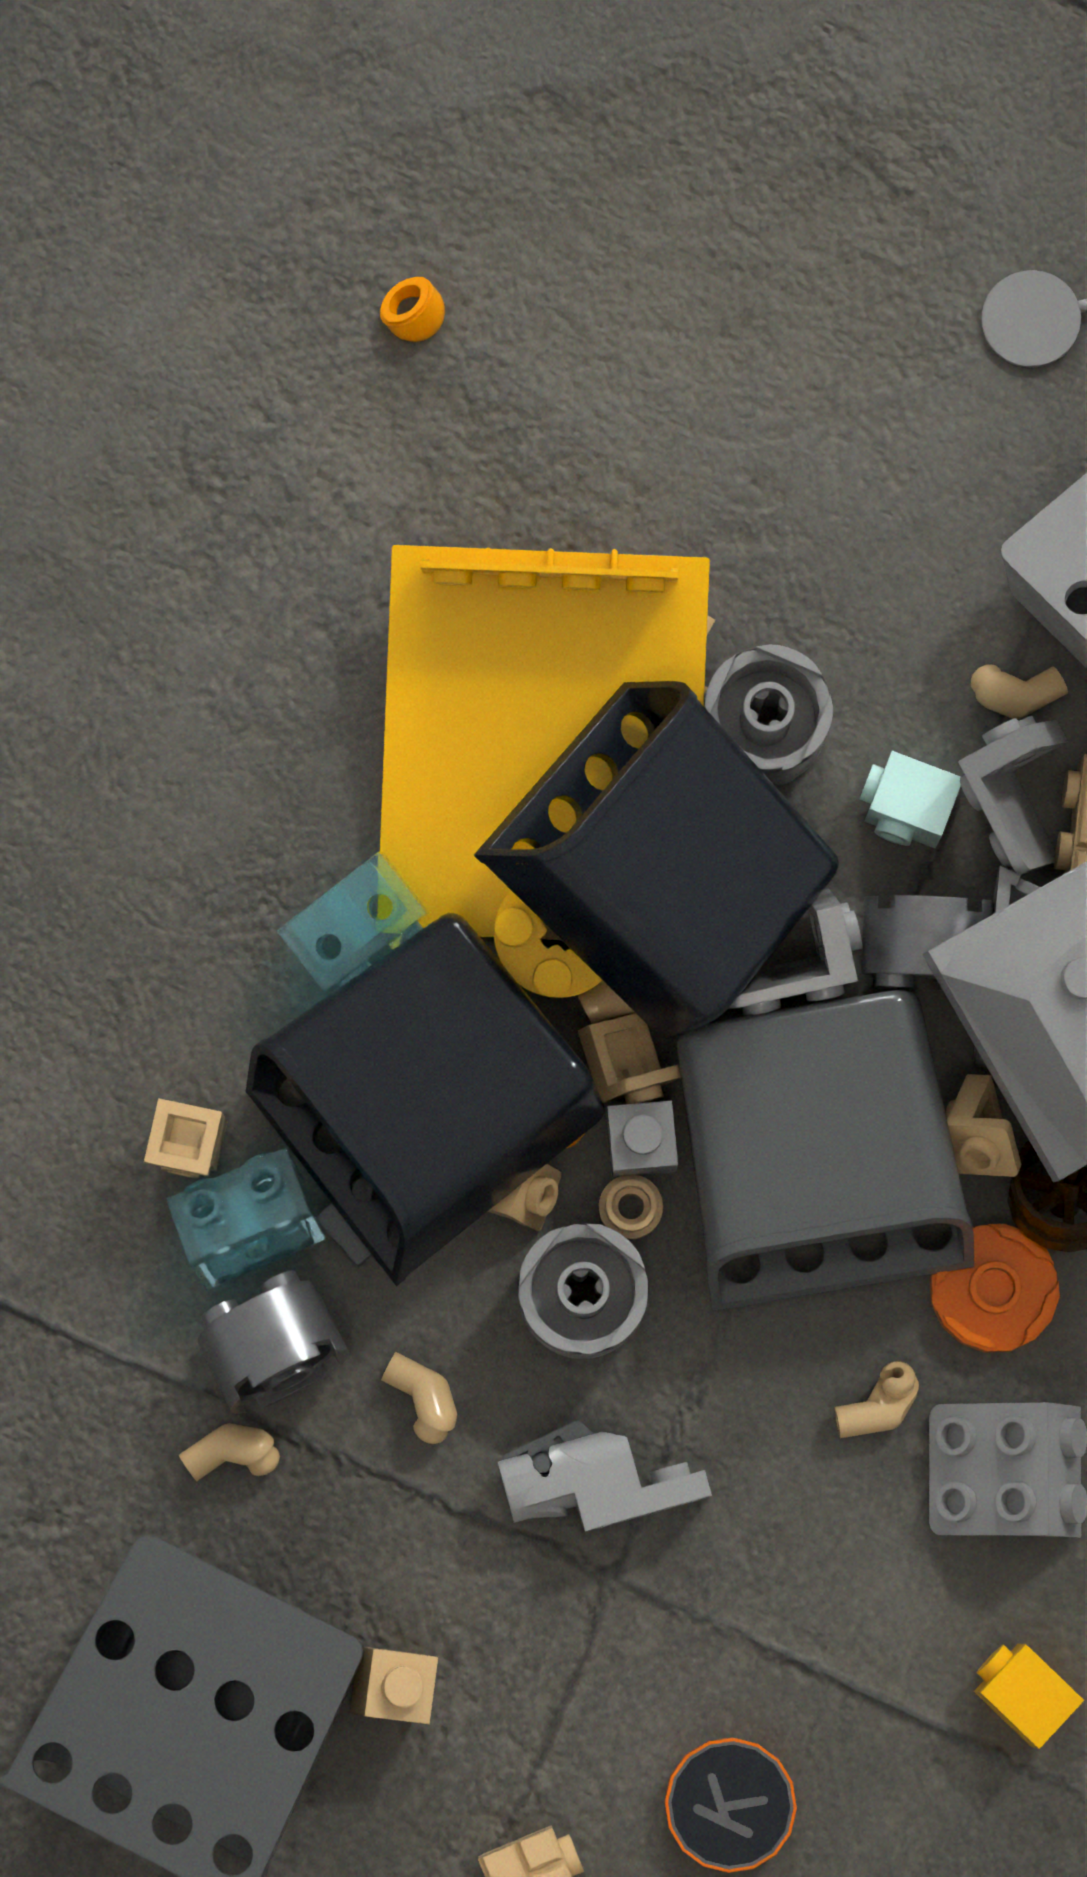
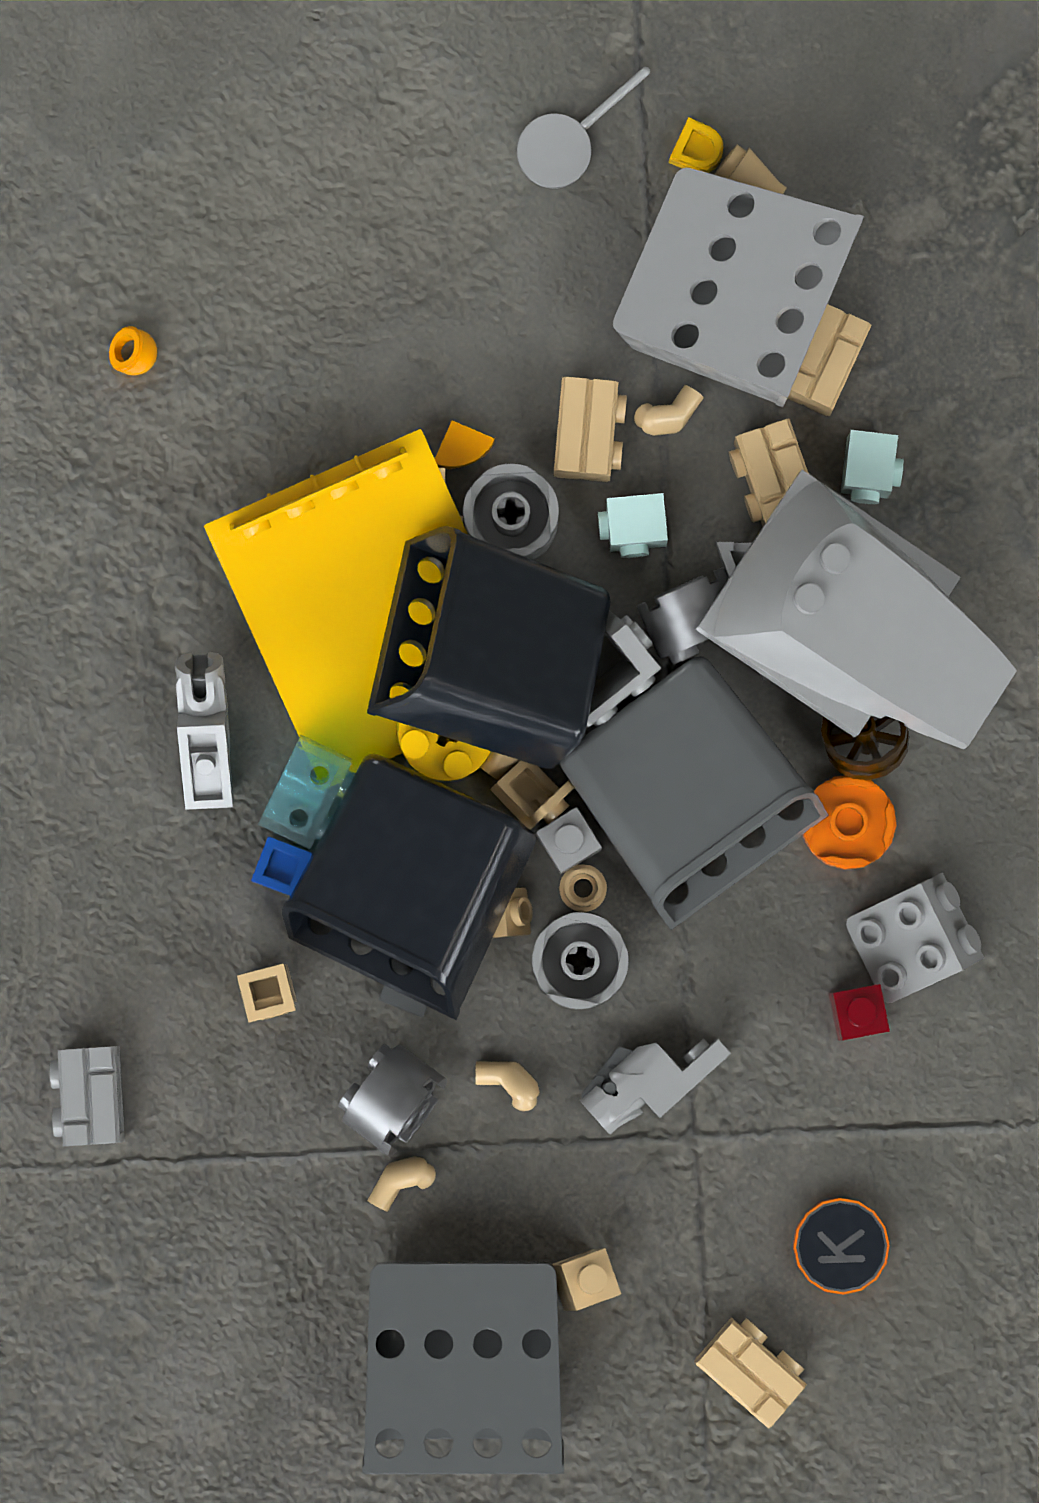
camera: 20 degrees left, 5 degrees up
(245, 1218) = (333, 1024): clear light blue brick -> none
(268, 791) = (203, 731): none -> plate
(277, 996) = (280, 866): none -> blue plate
(749, 609) = (462, 446): none -> light orange tile
(885, 1406) = (815, 936): tan arm -> none
(894, 1525) = (859, 1012): none -> dark red brick
(908, 661) = (587, 429): none -> tan brick
(978, 1132) = (788, 725): tan bracket -> none
(994, 787) = (690, 491): light grey bracket -> none
(1026, 1693) = (997, 1078): yellow brick -> none

